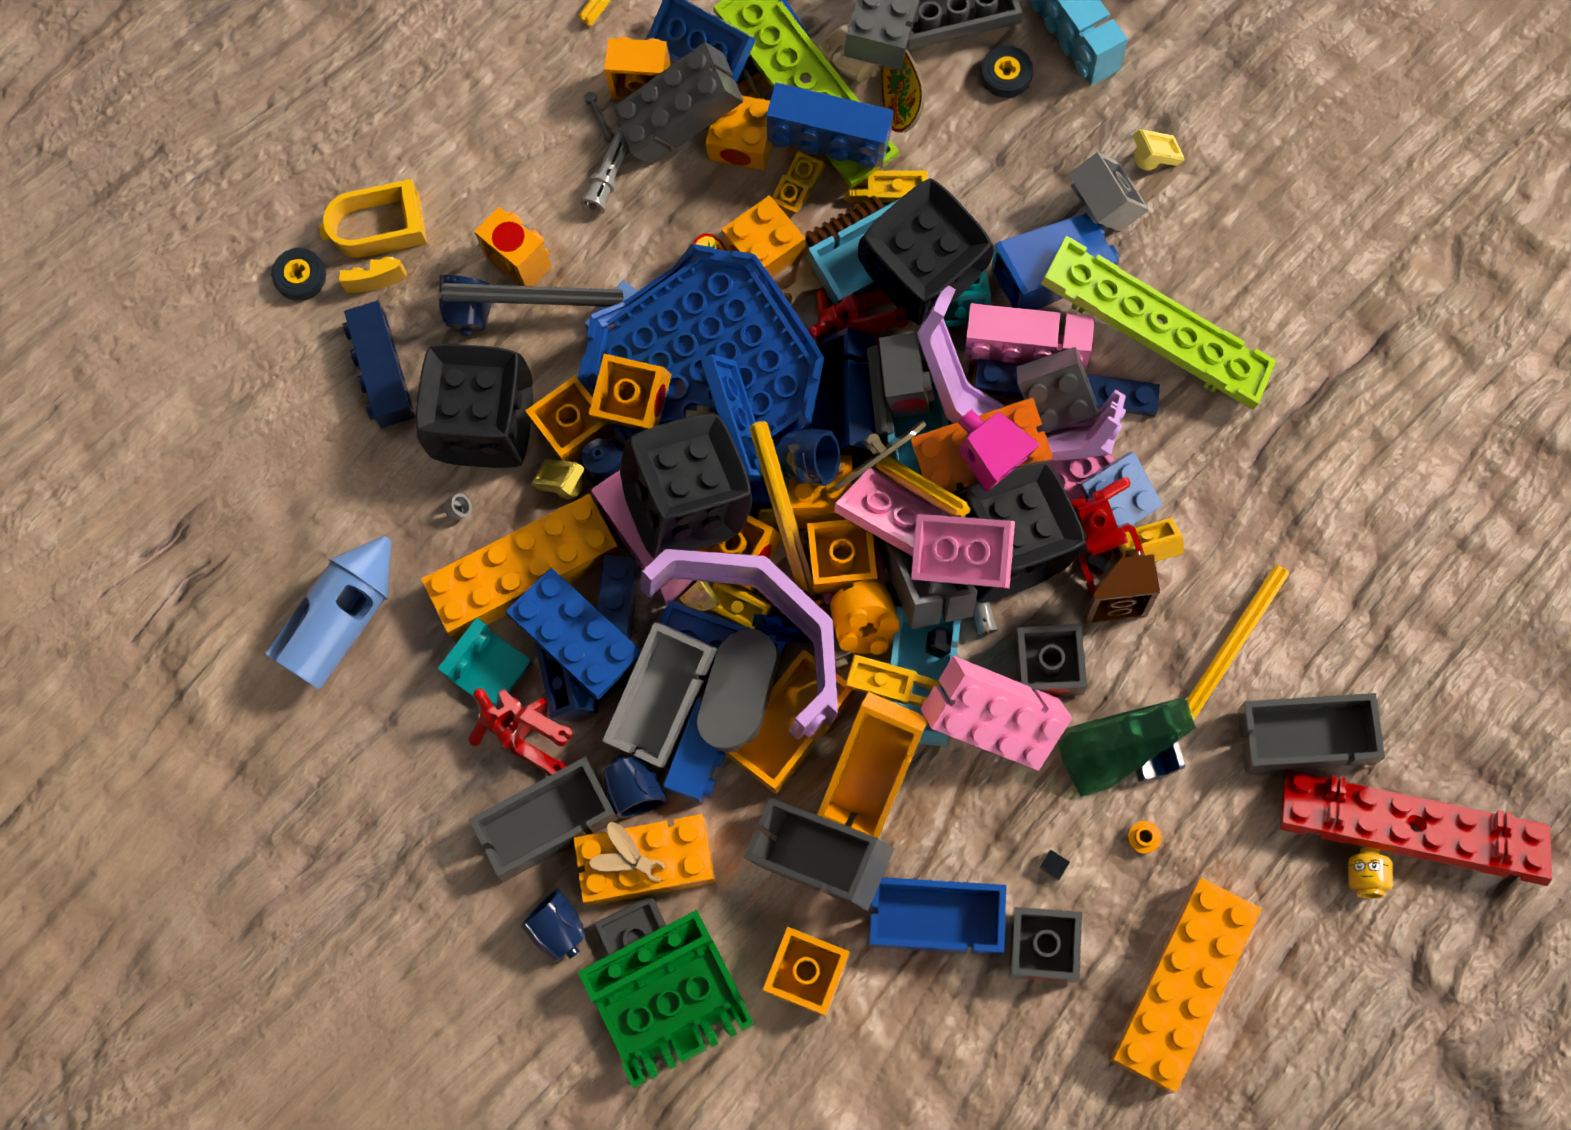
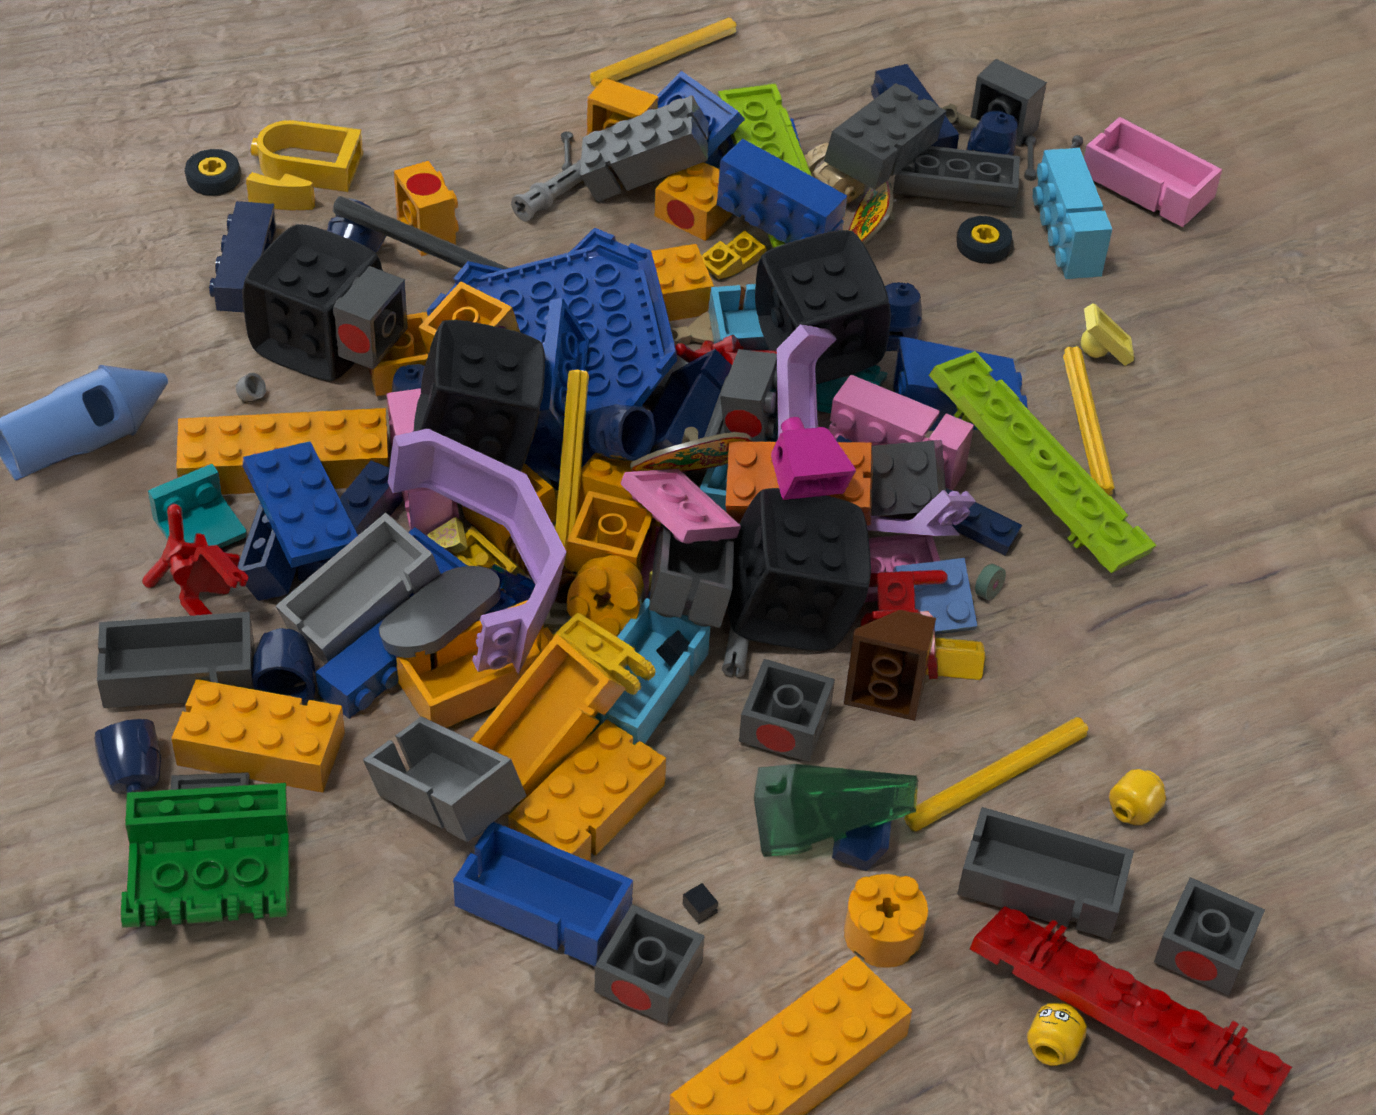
camera: 10 degrees right, 25 degrees down
(539, 417) = (370, 317): none -> dark grey brick
(560, 478) = (365, 393): light yellow tile -> none
(628, 859) = (242, 709): tan piece -> none
(806, 971) = (372, 893): light orange brick -> none
(923, 487) = (721, 487): yellow axle -> none
(931, 811) = (593, 791): none -> light orange piece
(963, 550) = (732, 534): bright pink plate -> none
(975, 194) = (905, 312): none -> dark blue helmet
(996, 713) = (701, 715): bright pink piece -> none
(1107, 192) = (1038, 348): light grey brick -> none
(1137, 844) = (810, 921): light orange plate -> none
(1156, 456) = (990, 581): none -> sand green tile
(1174, 250) = (1088, 419): none -> yellow axle
(1204, 843) = (885, 919): none -> light orange brick
(1351, 625) = (1138, 795): none -> yellow head
(1454, 738) = (1209, 936): none -> dark grey brick

